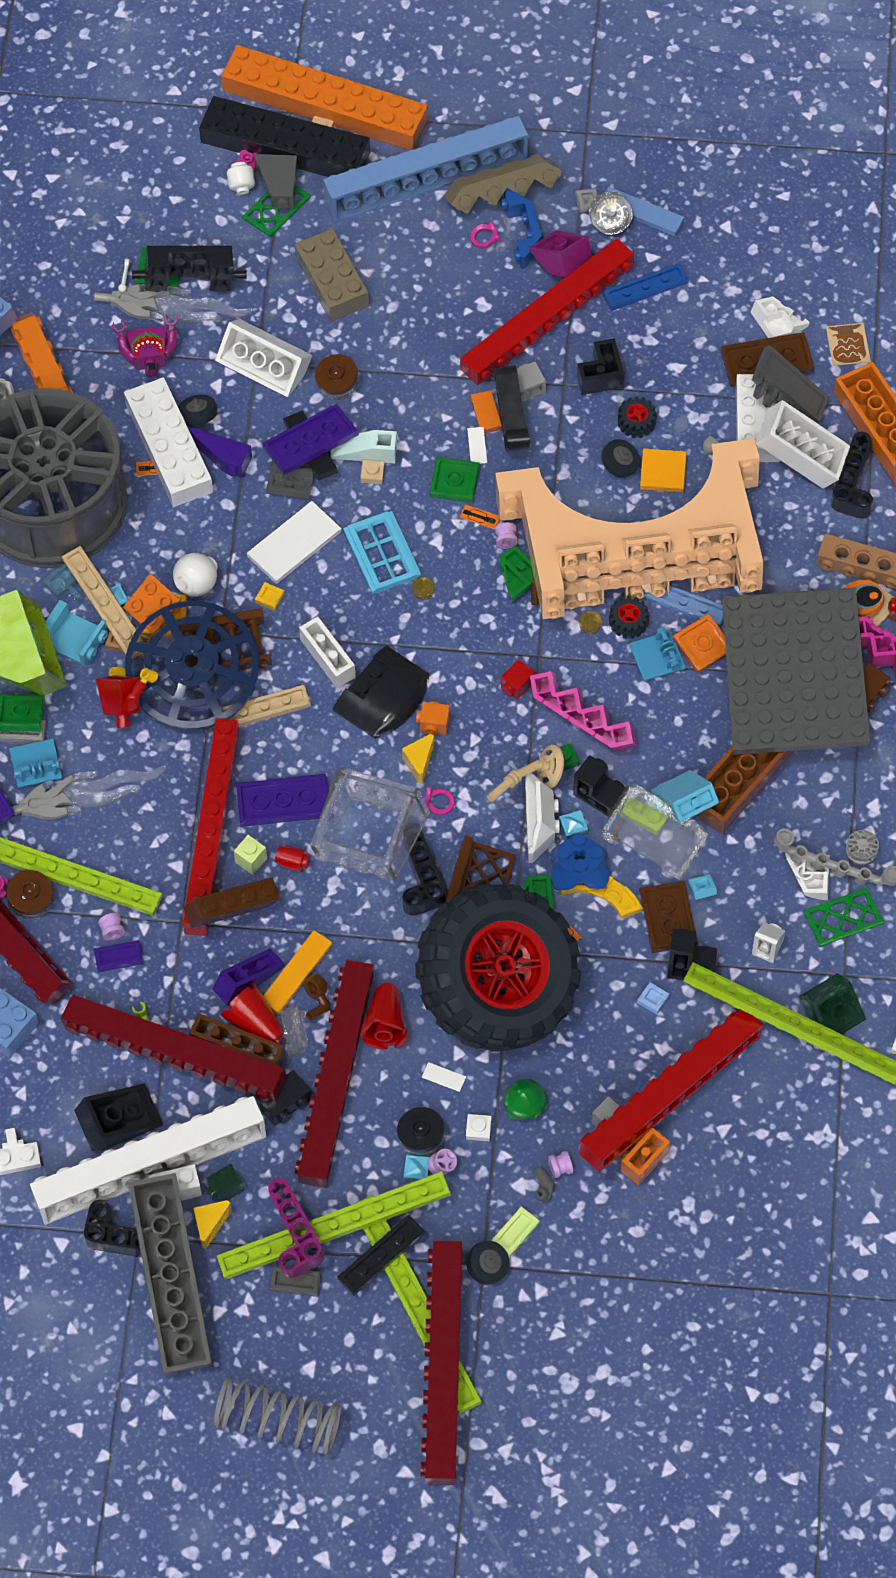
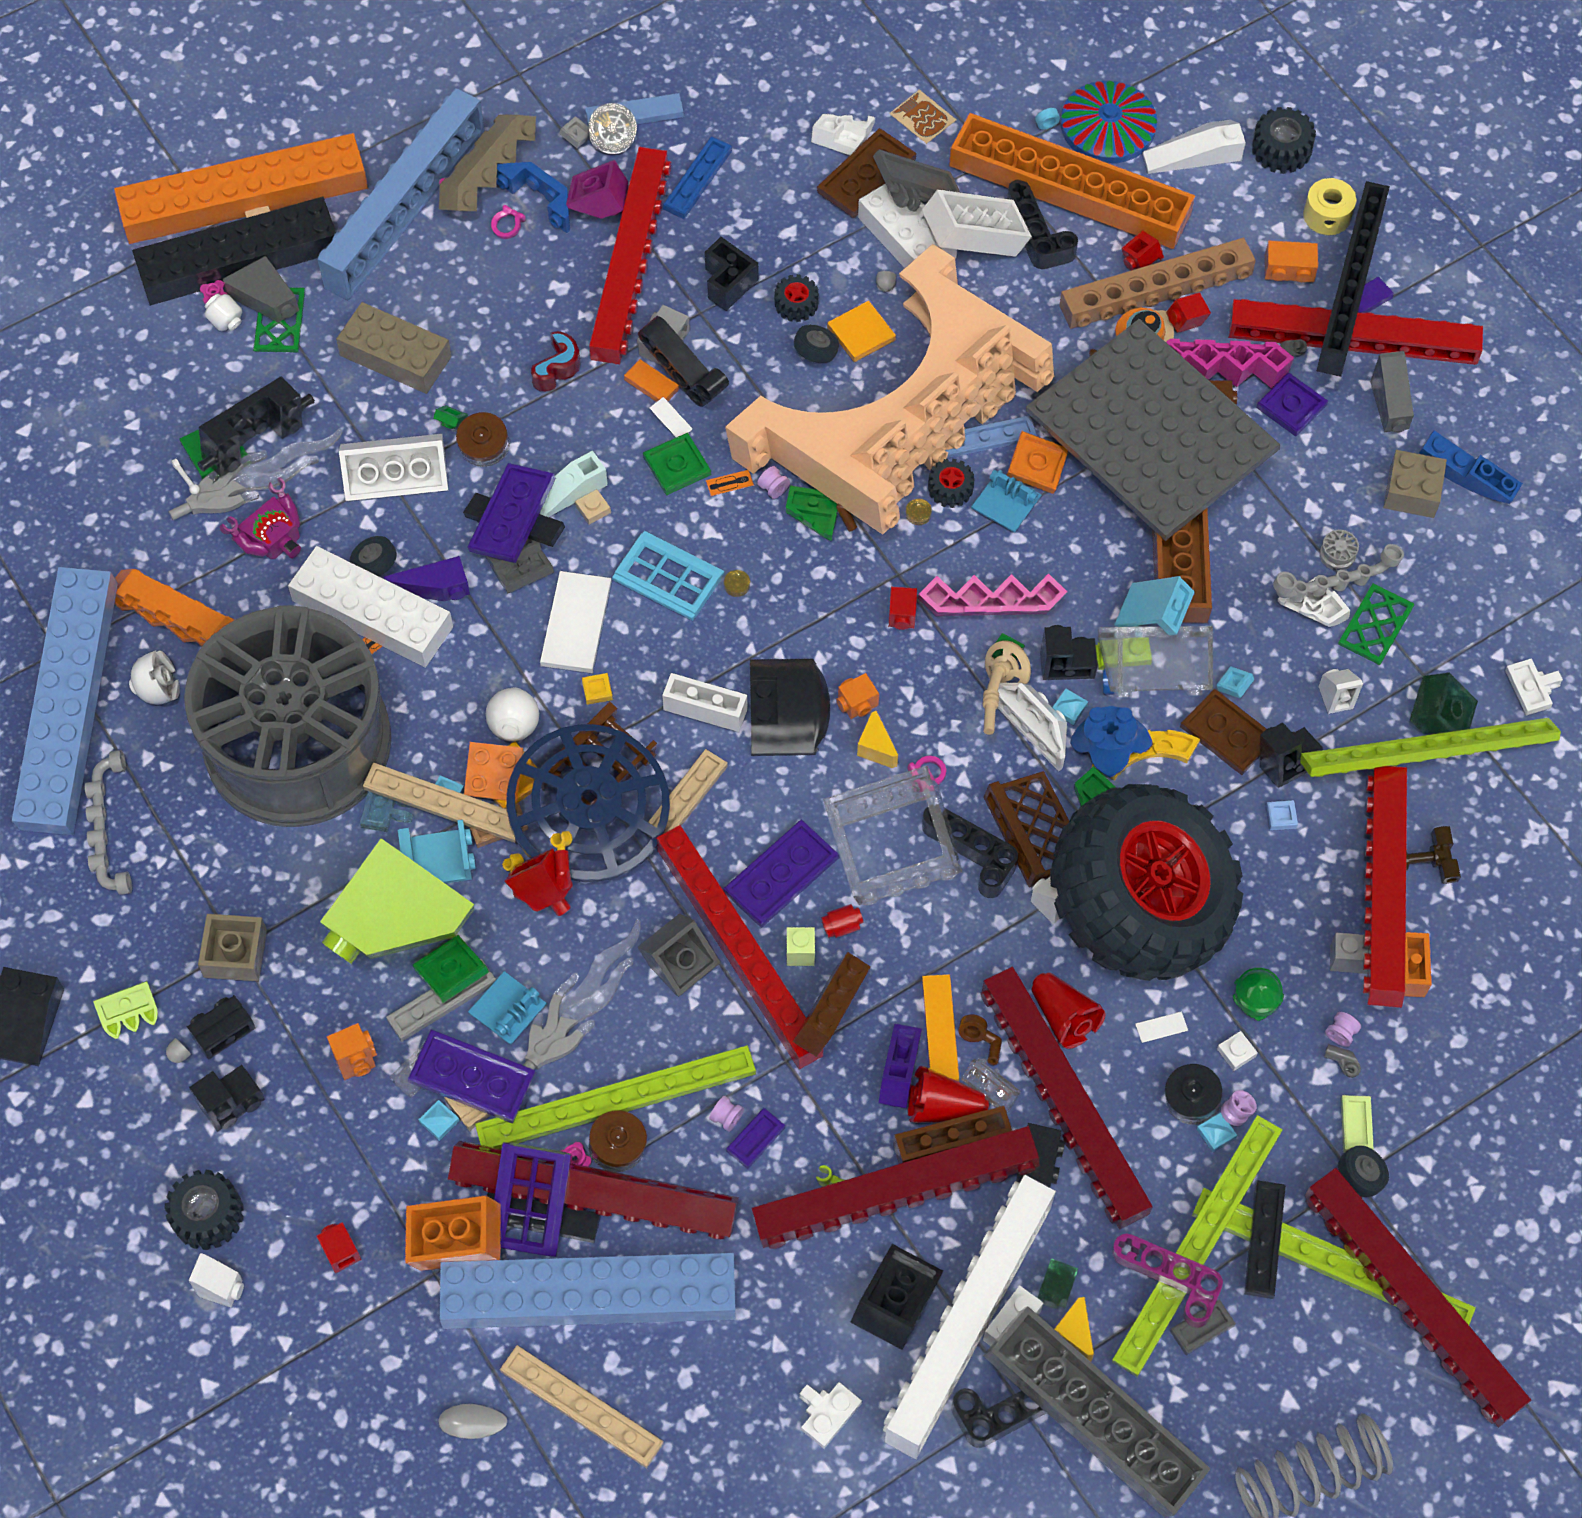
camera: 40 degrees left, 0 degrees up
(169, 805) = (679, 954): none -> dark grey slope
(328, 346) = (449, 416): none -> green plate
(431, 359) = (558, 366): none -> dark red animal
(736, 1100) = (1439, 855): none -> dark brown bar

